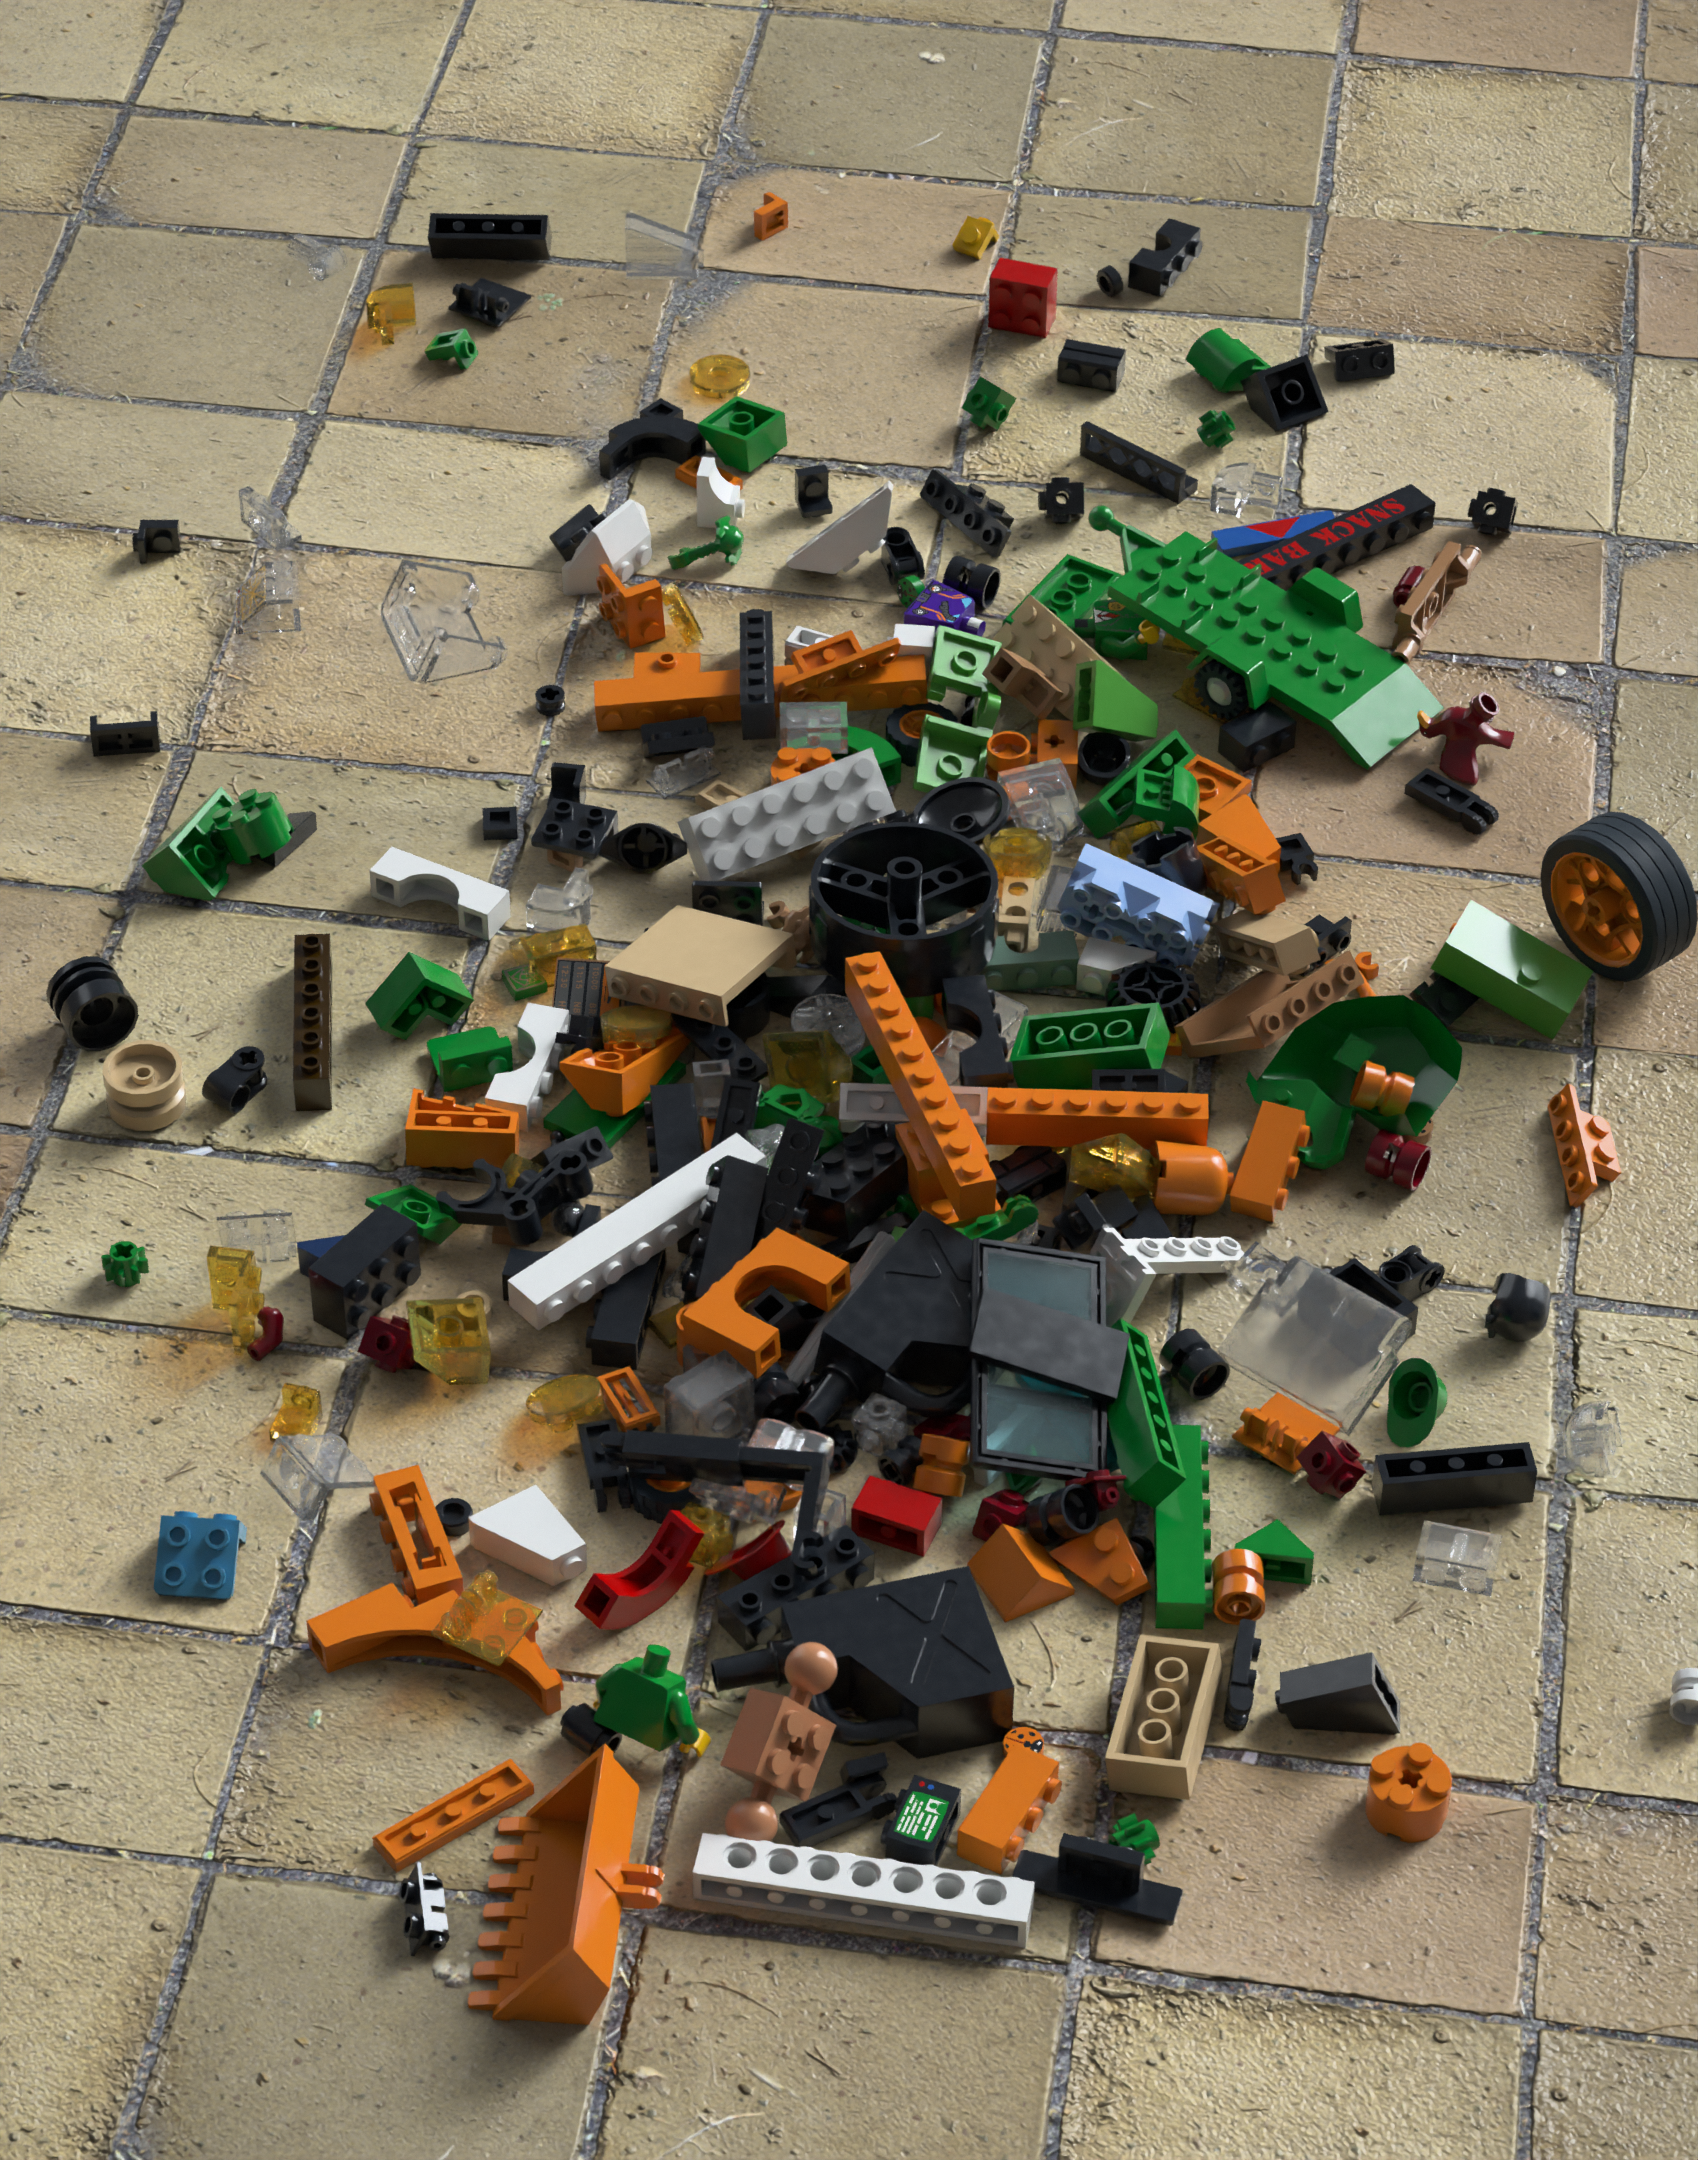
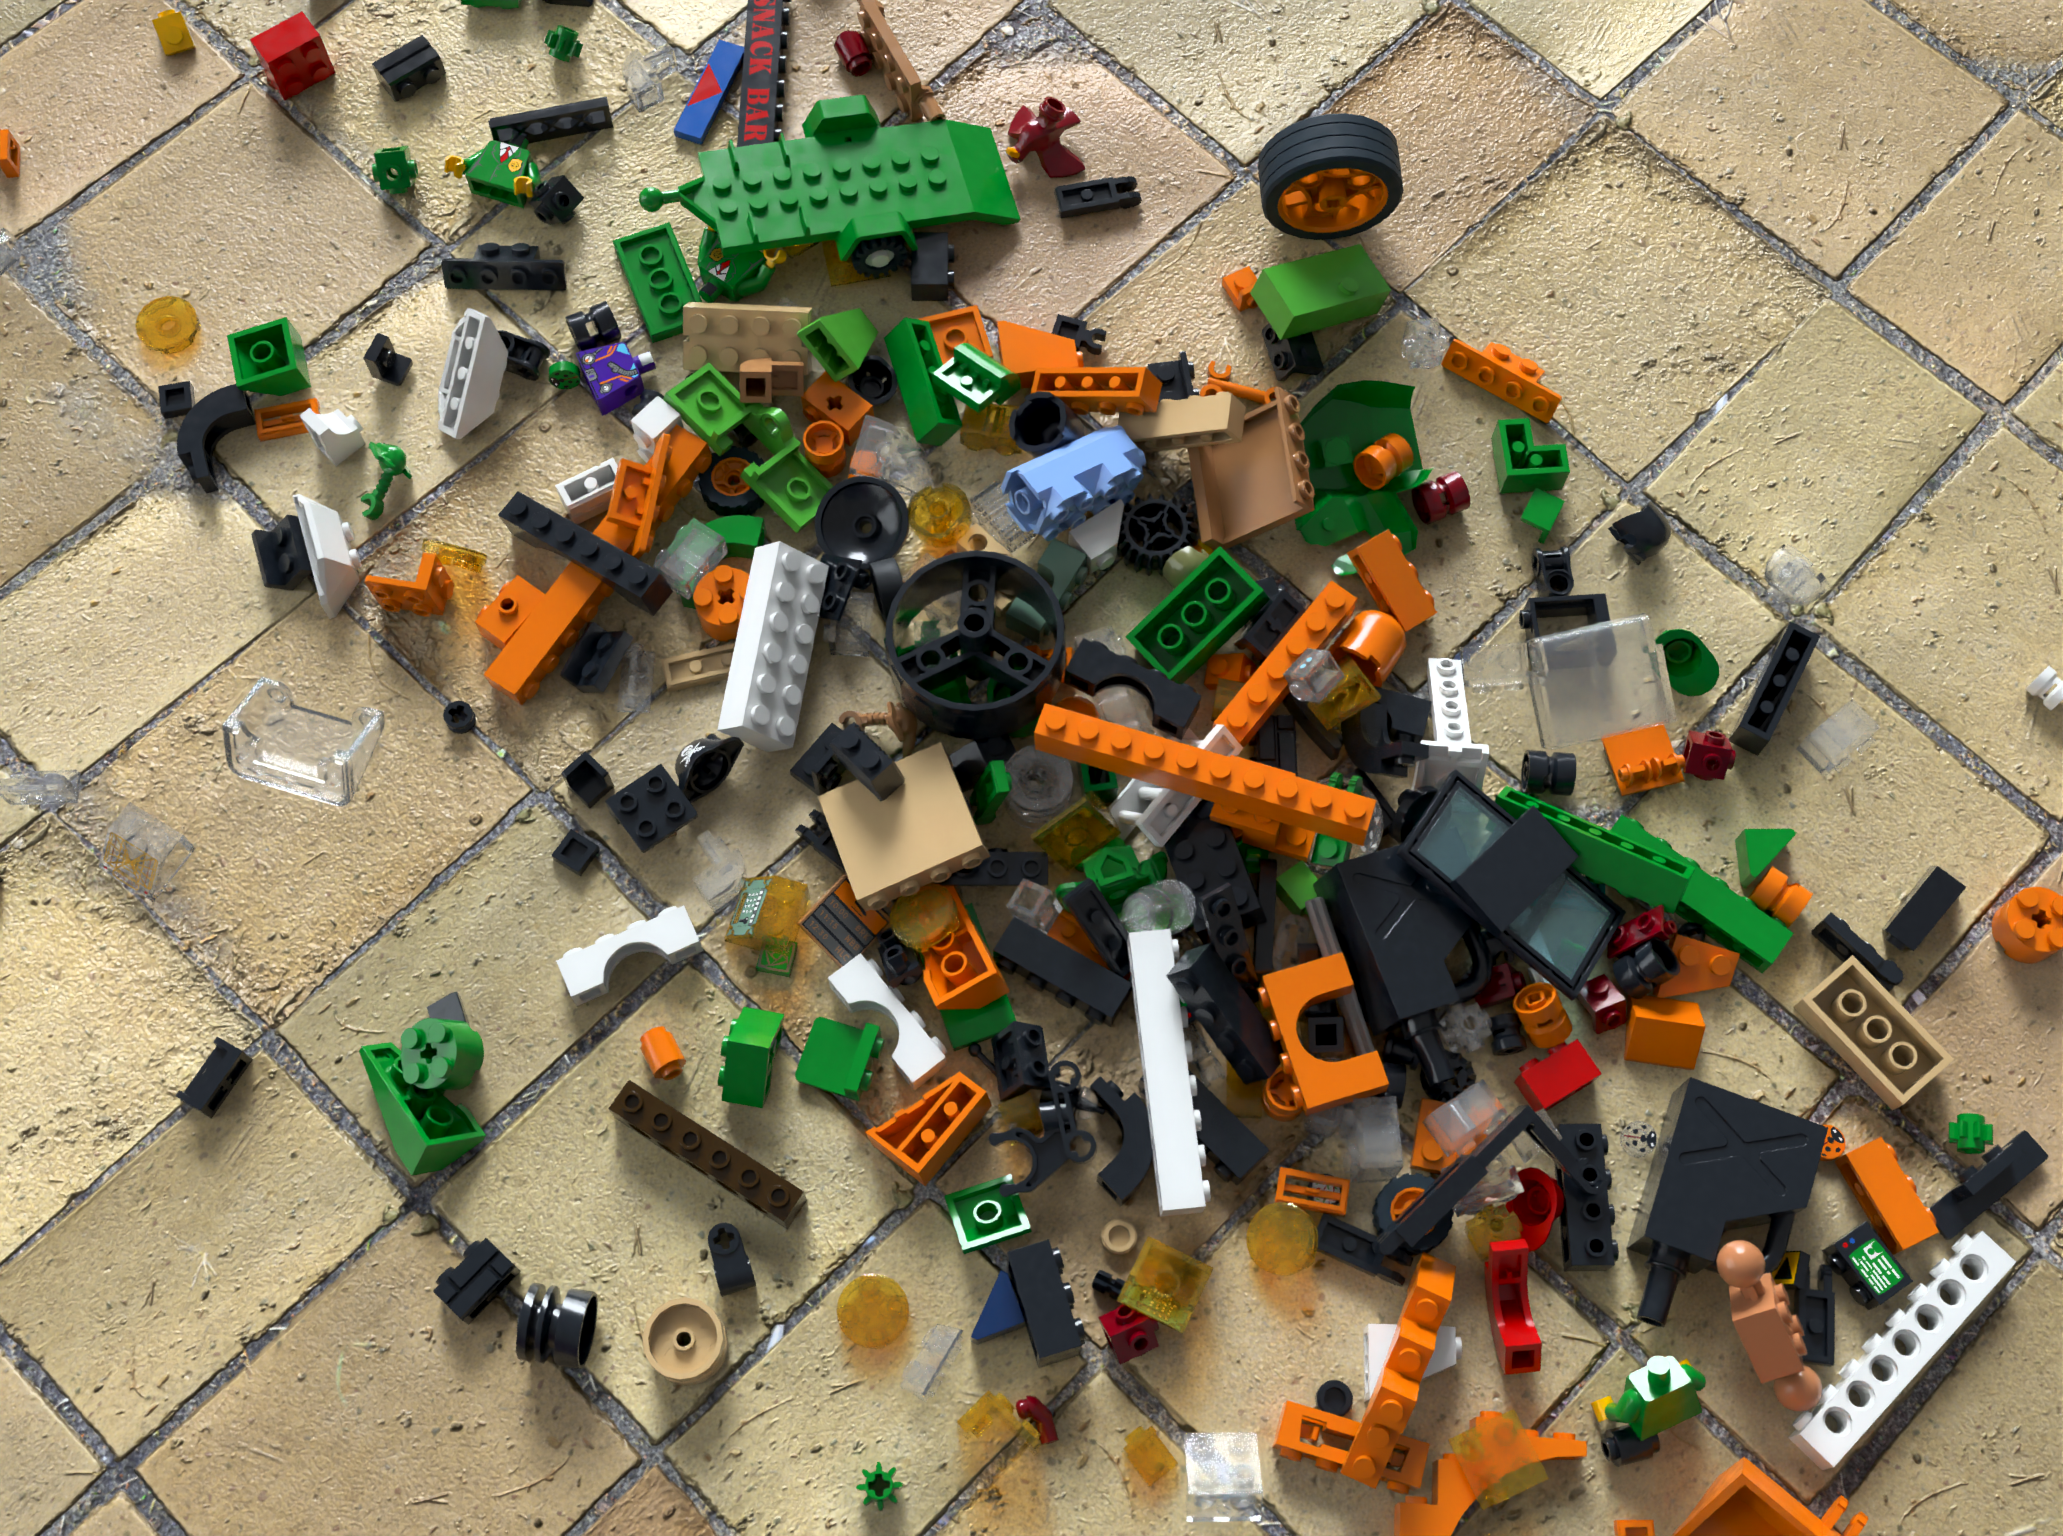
camera: 55 degrees left, 25 degrees up
(82, 941) = (475, 1280): none -> black brick
(270, 1185) = (873, 1311): none -> clear yellow tile
(374, 955) = (662, 1053): none -> orange brick
(520, 1493) = (1404, 1366): none -> orange arch
(728, 898) = (867, 762): none -> black brick
(784, 998) = (990, 792): none -> green hinge
(1053, 455) = (499, 171): none -> green torso
(1094, 1120) = (1313, 675): none -> clear brick
(1459, 1237) = (1542, 512): none -> green panel
(1501, 1194) = (1525, 466): none -> green brick
(1546, 1070) = (1423, 343): none -> clear brick

